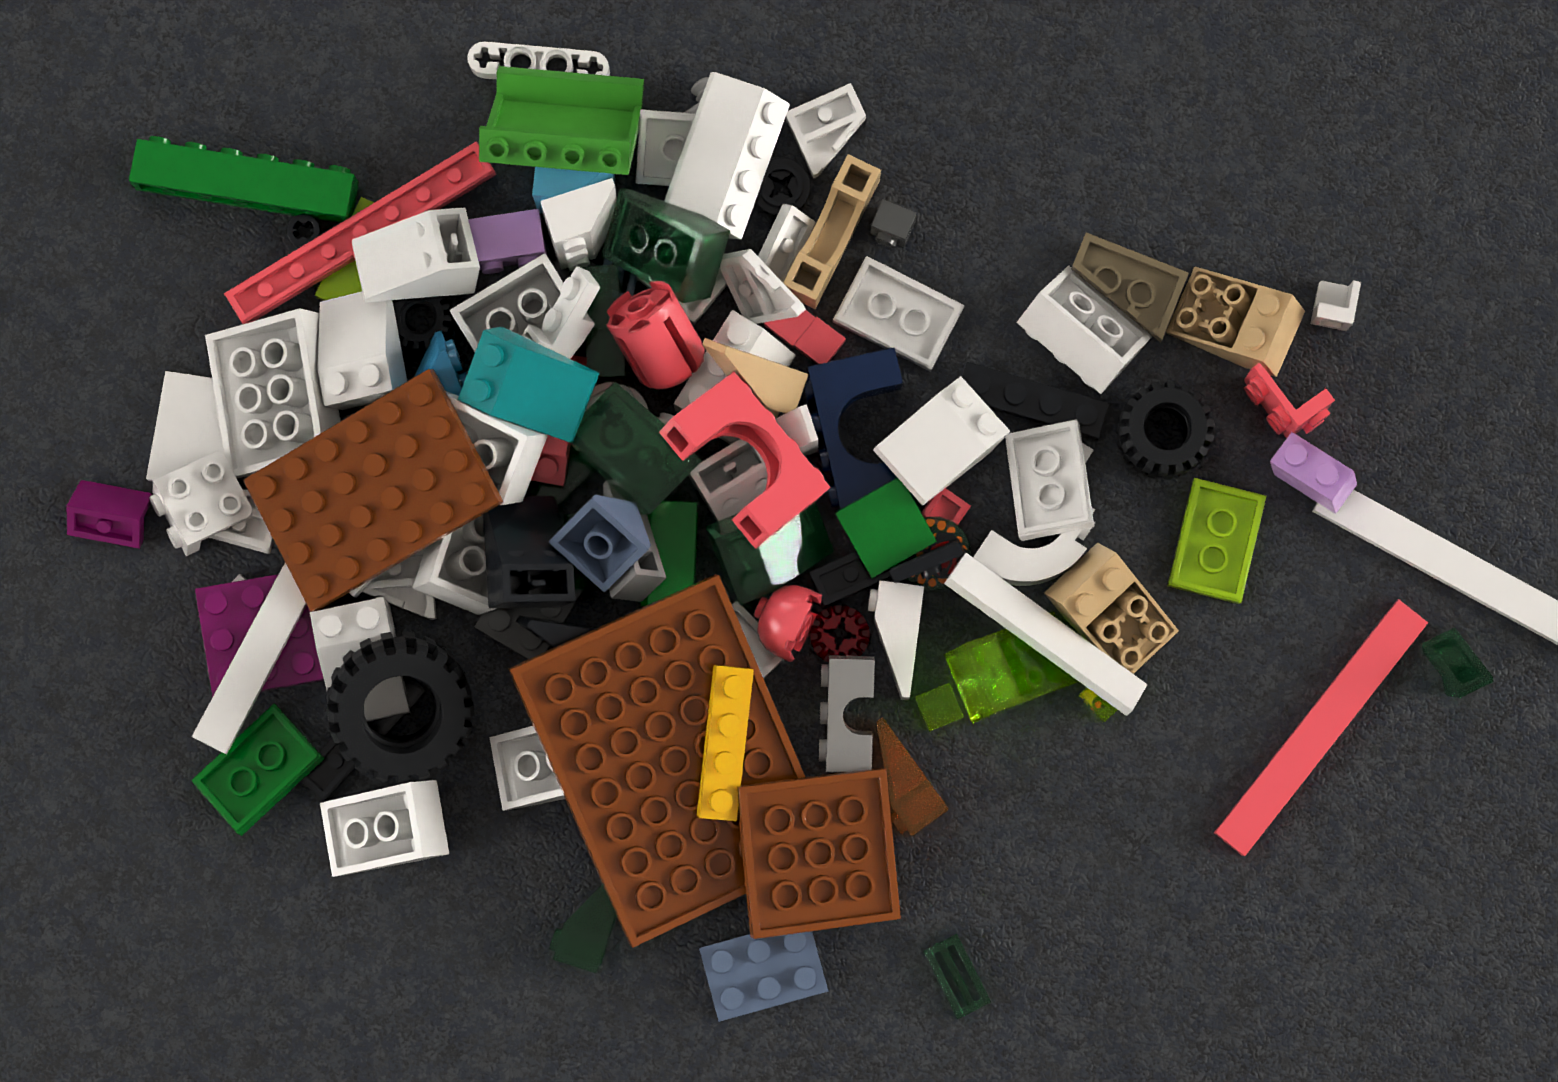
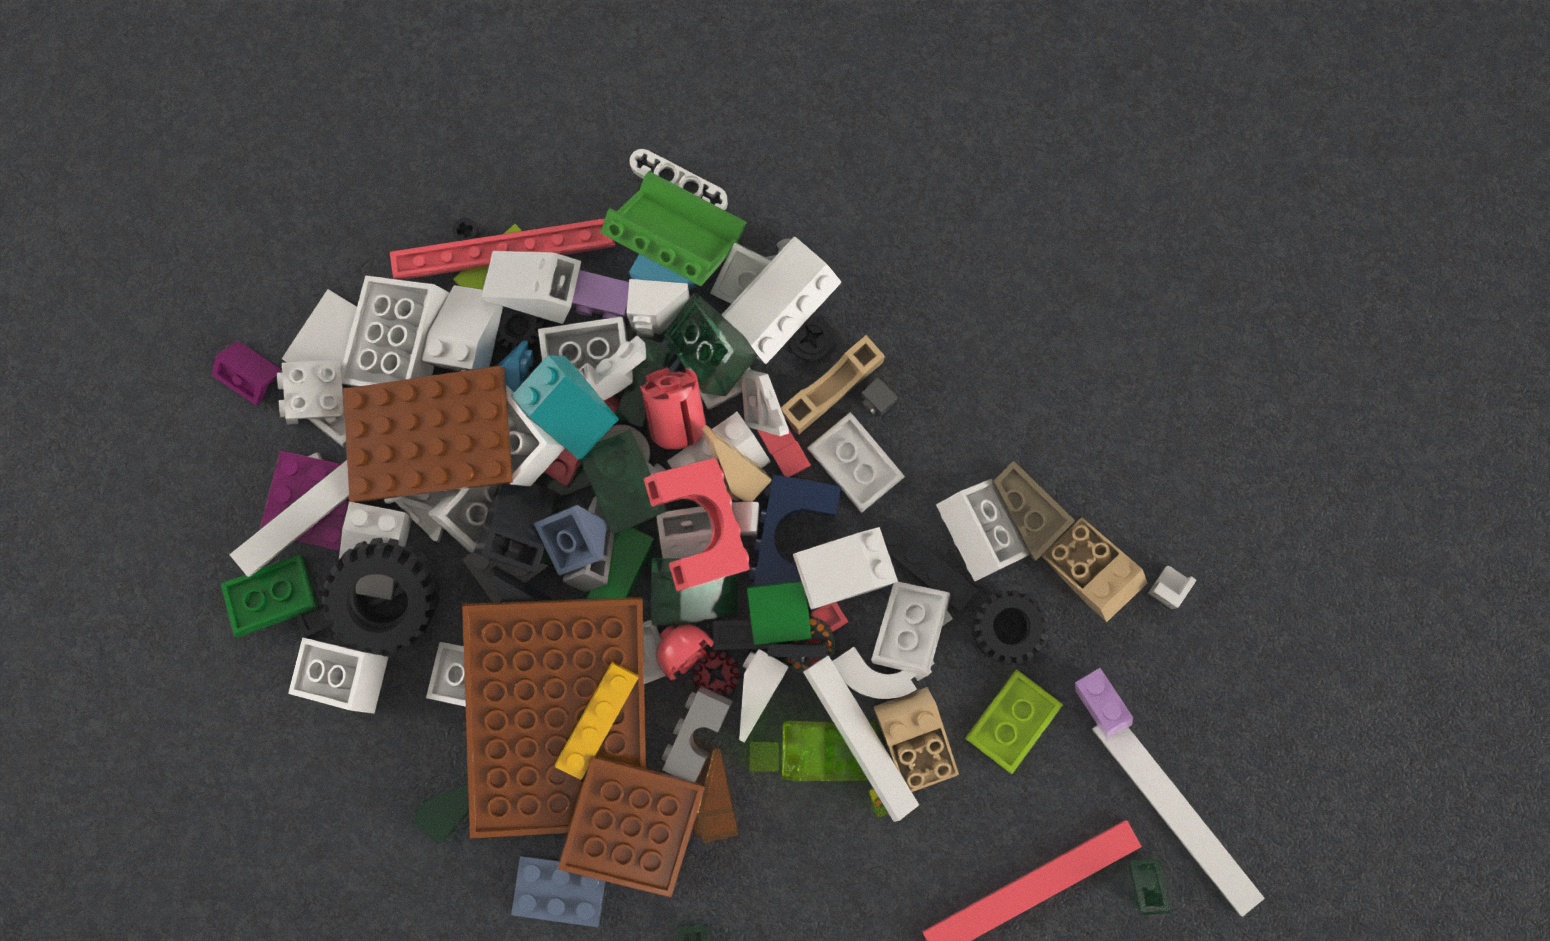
camera: 25 degrees right, 0 degrees up
(243, 180) = (439, 179): green brick -> none
(785, 240) = (796, 377): white plate -> none
(825, 126) = (861, 307): white wing -> none
(1282, 415) = (1098, 650): coral bracket -> none

